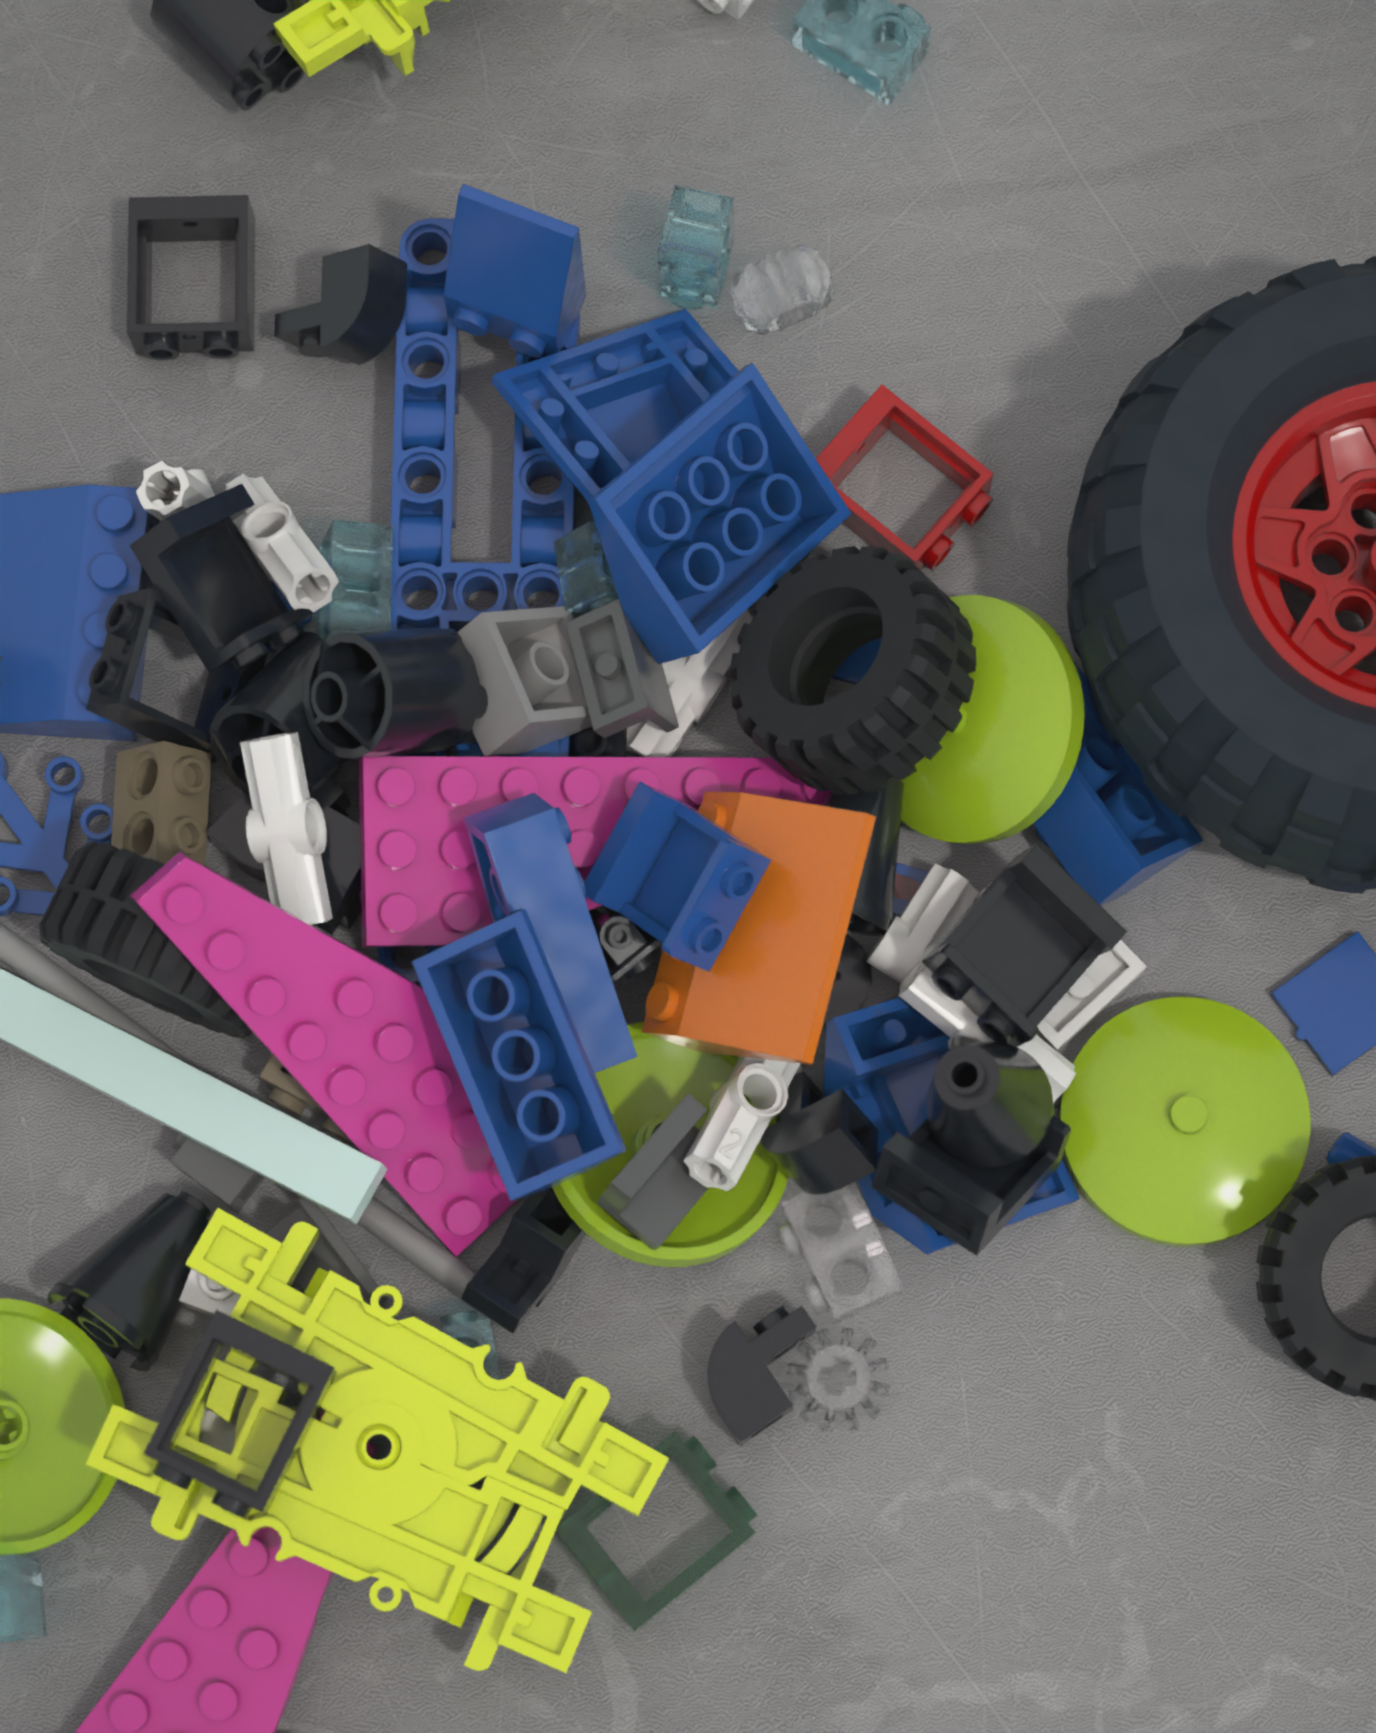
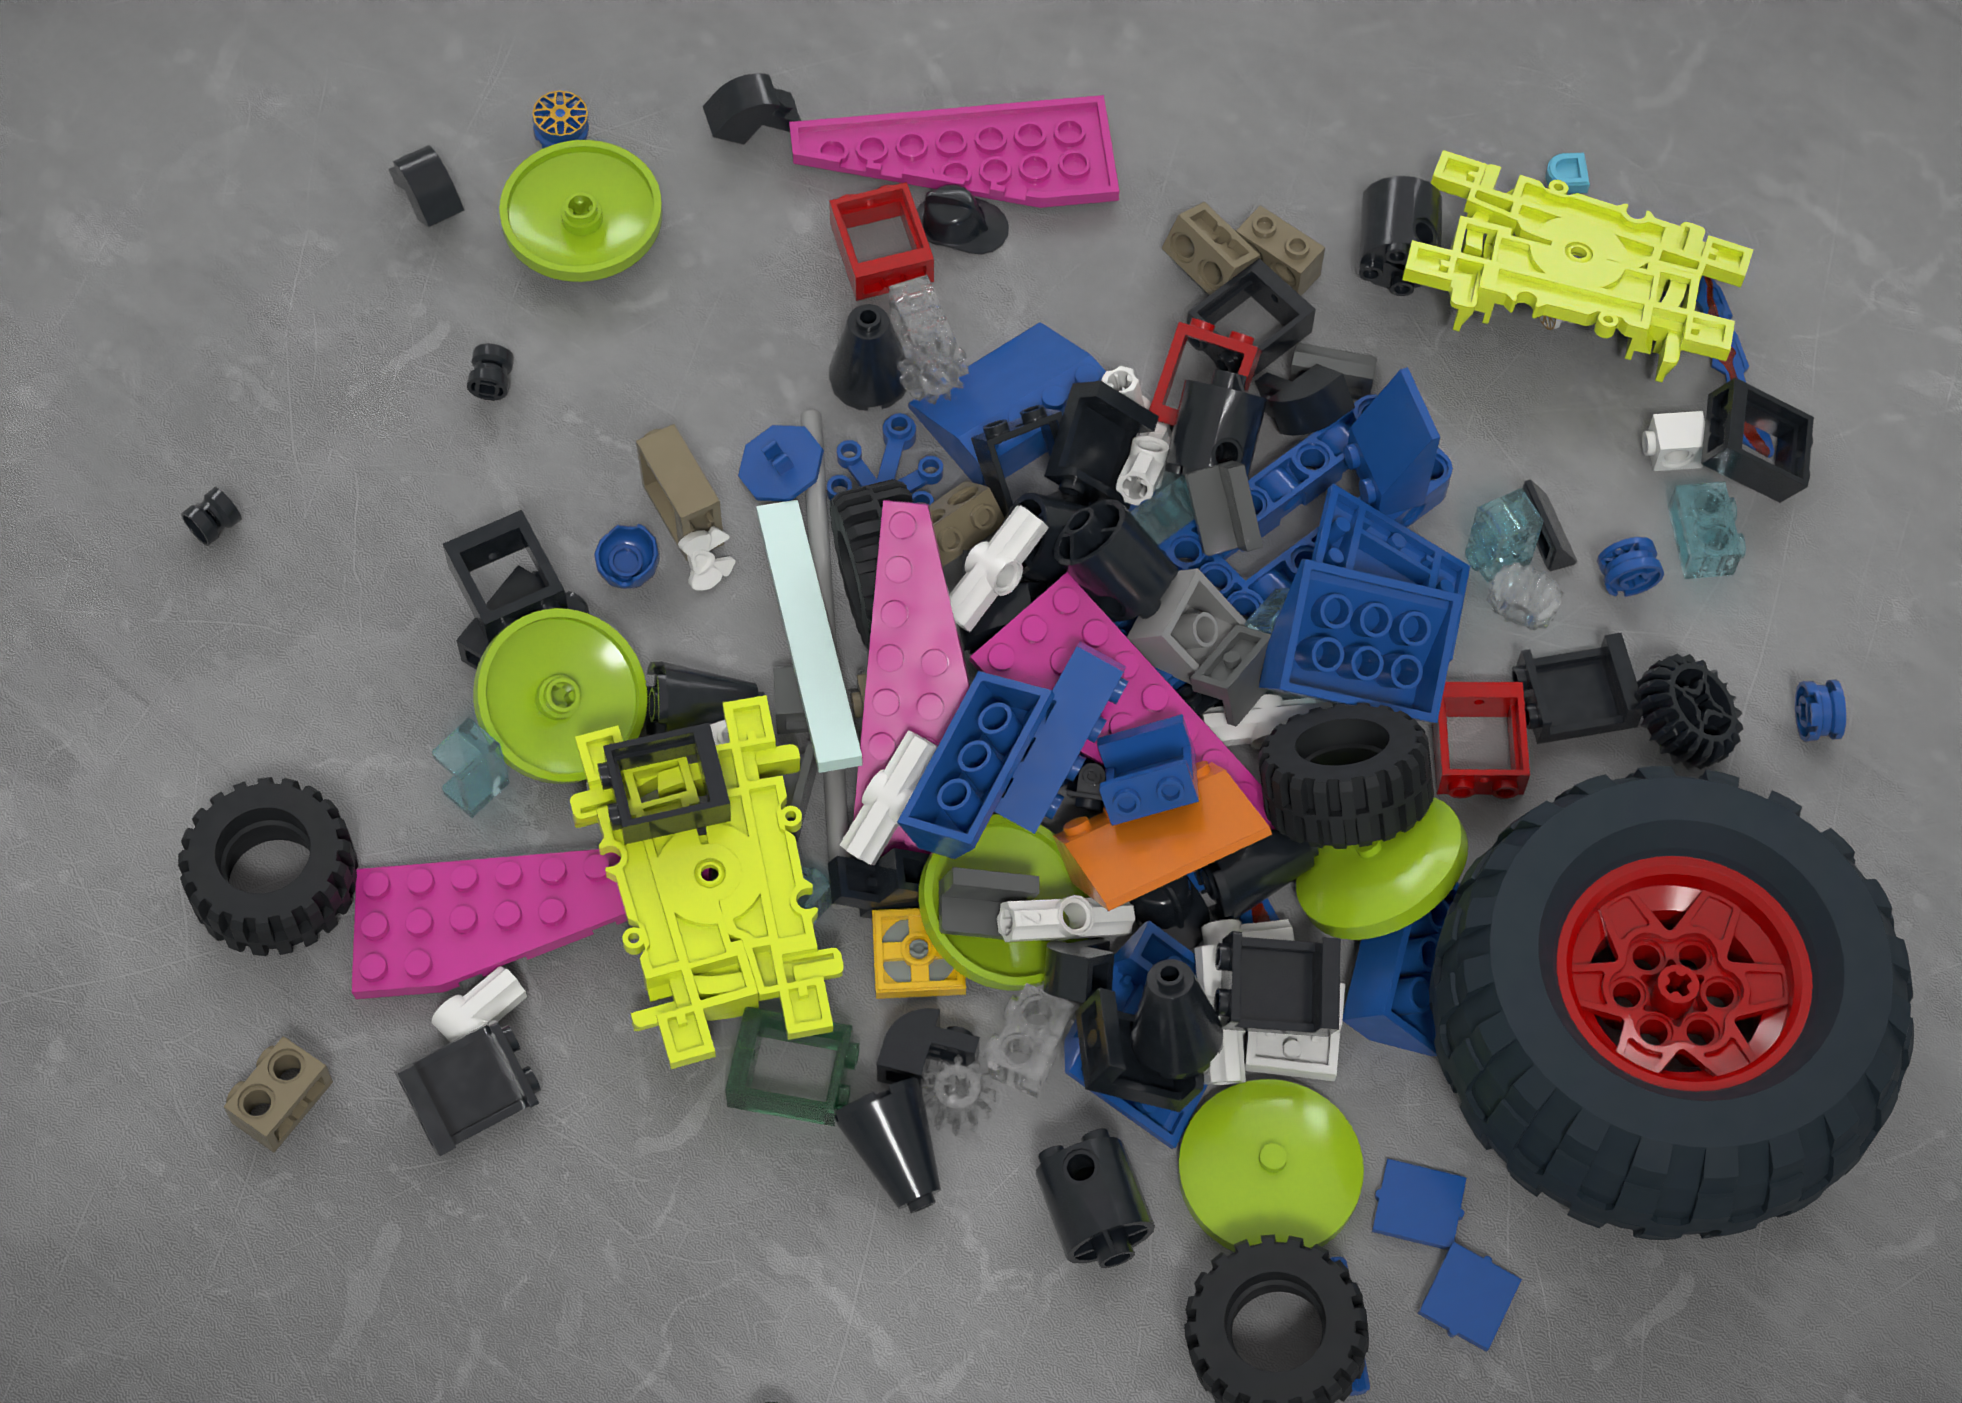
camera: 45 degrees right, 15 degrees down
(67, 239) = (1208, 247): none -> dark tan brick
(131, 163) = (1284, 248): none -> dark tan brick
(259, 446) = (1203, 332): none -> red window
(316, 438) = (1215, 424): none -> black cylinder
(330, 226) = (1356, 367): none -> dark grey panel
(420, 514) = (1223, 508): none -> dark grey panel
(455, 1171) = (887, 798): none -> white piece
(632, 1301) = (907, 959): none -> yellow piece
(750, 202) = (1552, 539): none -> black slope
(839, 150) = (1631, 568): none -> blue wheel
(840, 1493) = (895, 1142): none -> black cone
(929, 330) = (1579, 691): none -> black panel
(1059, 248) = (1688, 711): none -> black gear
(1106, 1354) = (1098, 1215): none -> black cylinder
(1166, 114) = (1820, 710): none -> blue wheel

